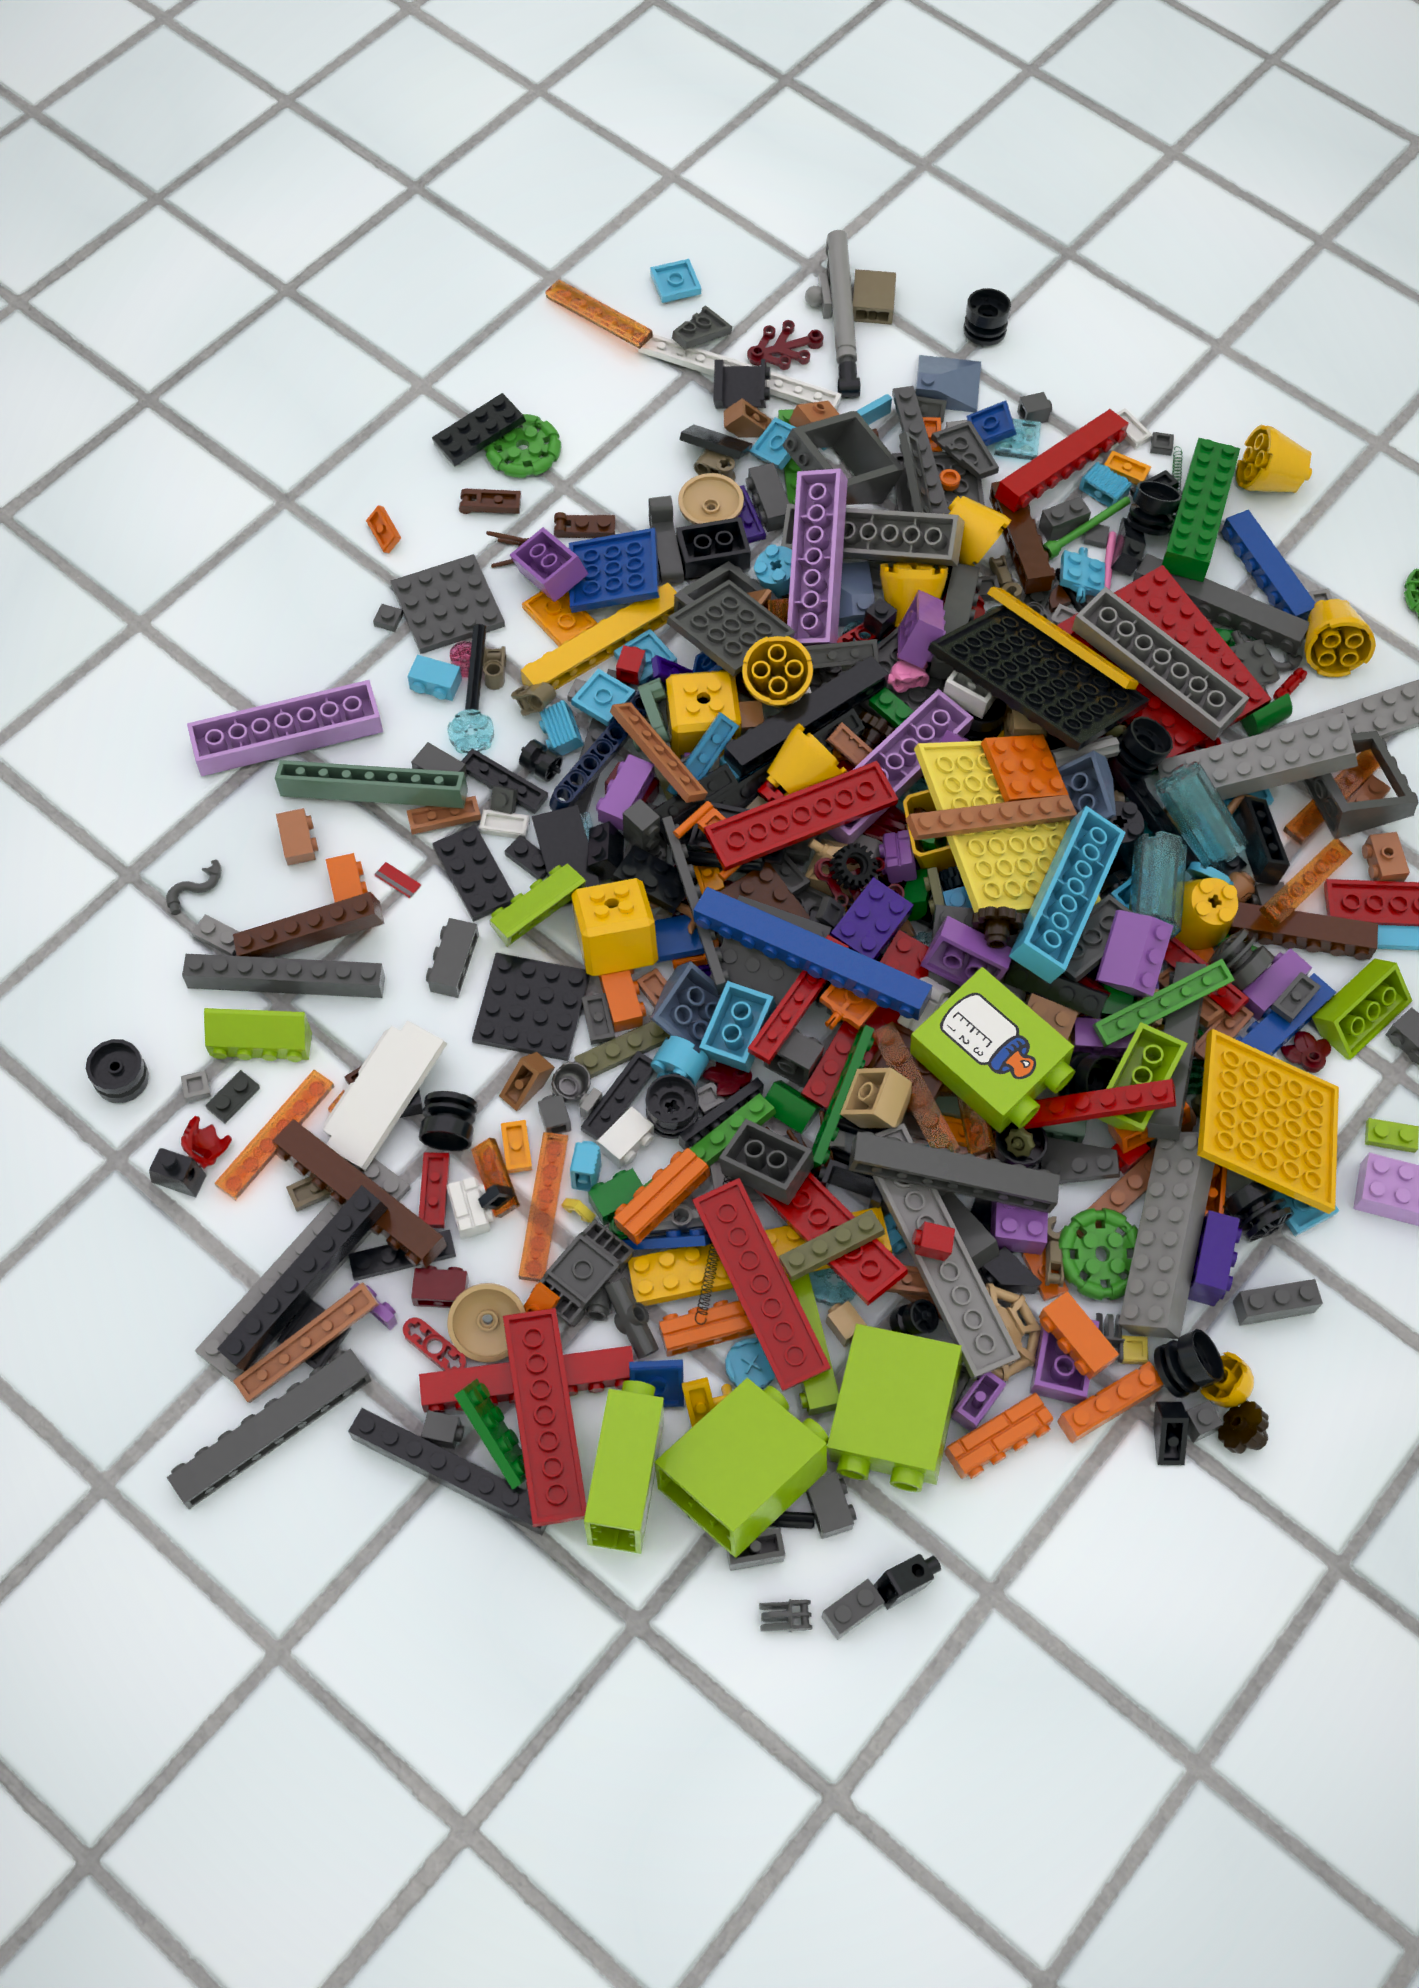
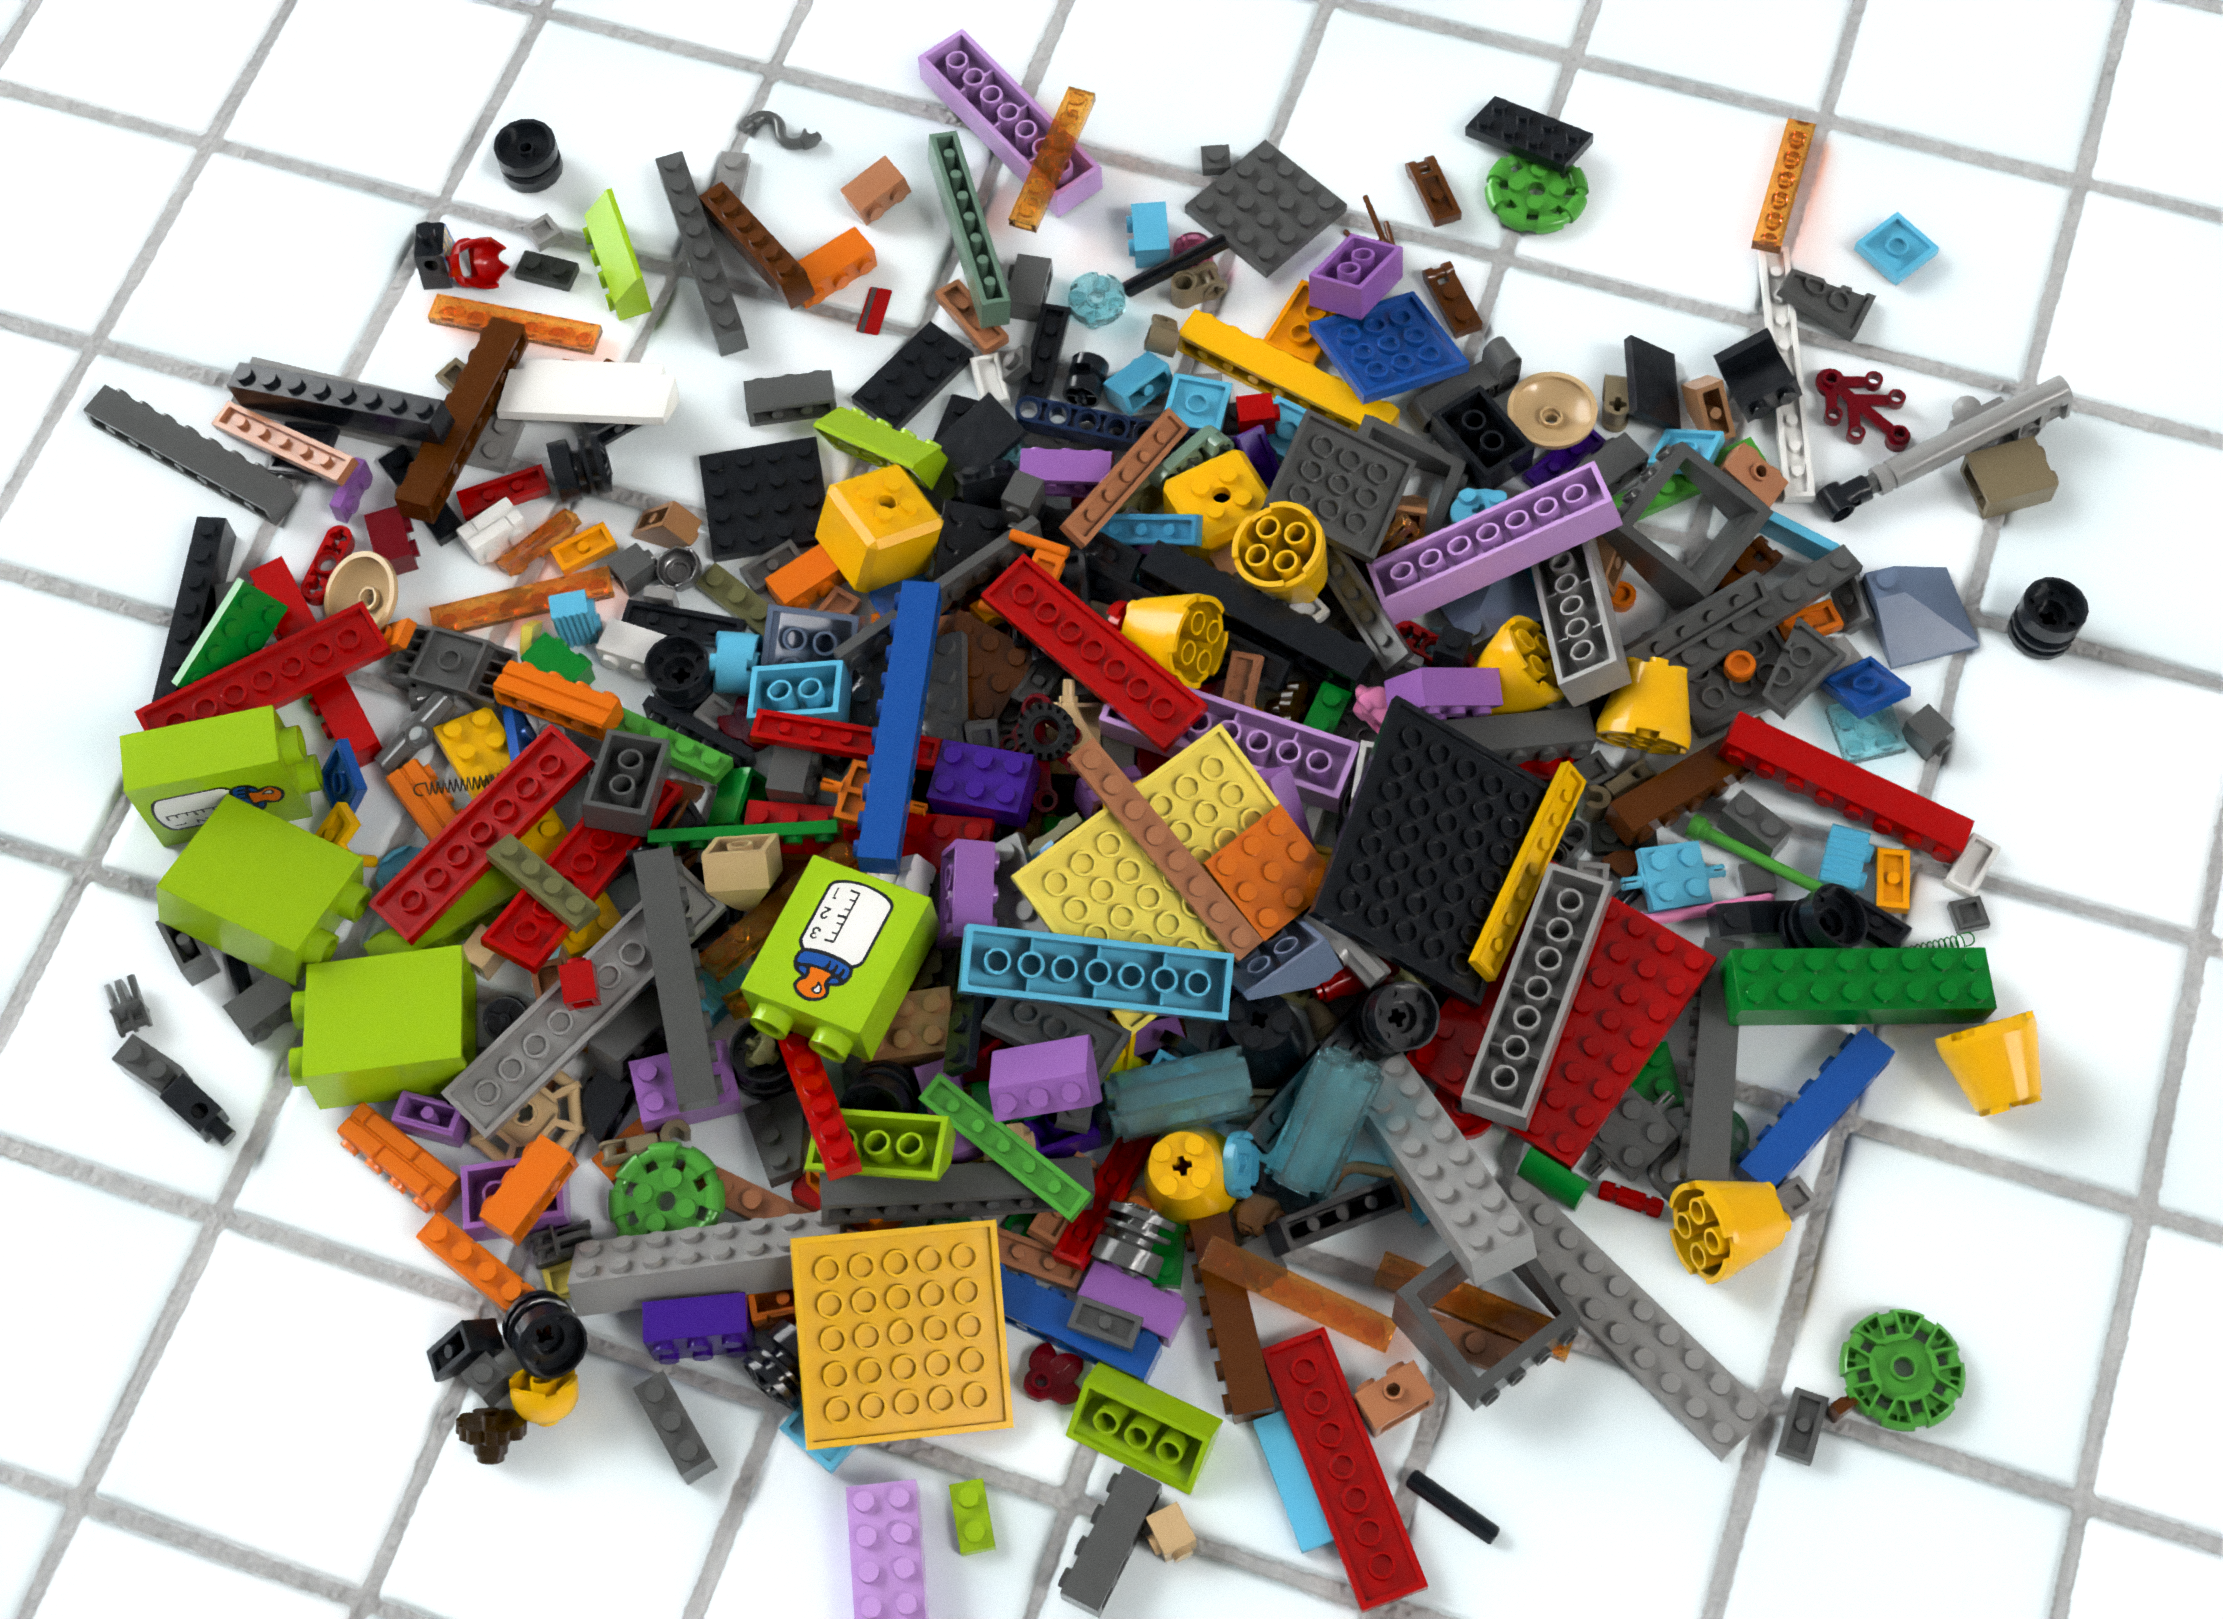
camera: 75 degrees right, 0 degrees up
(347, 705) = (1052, 159): none -> clear orange plate
(383, 529) = (1333, 103): orange plate -> none
(496, 1197) = (504, 545): black plate -> none
(997, 924) = (999, 900): dark brown plant -> none

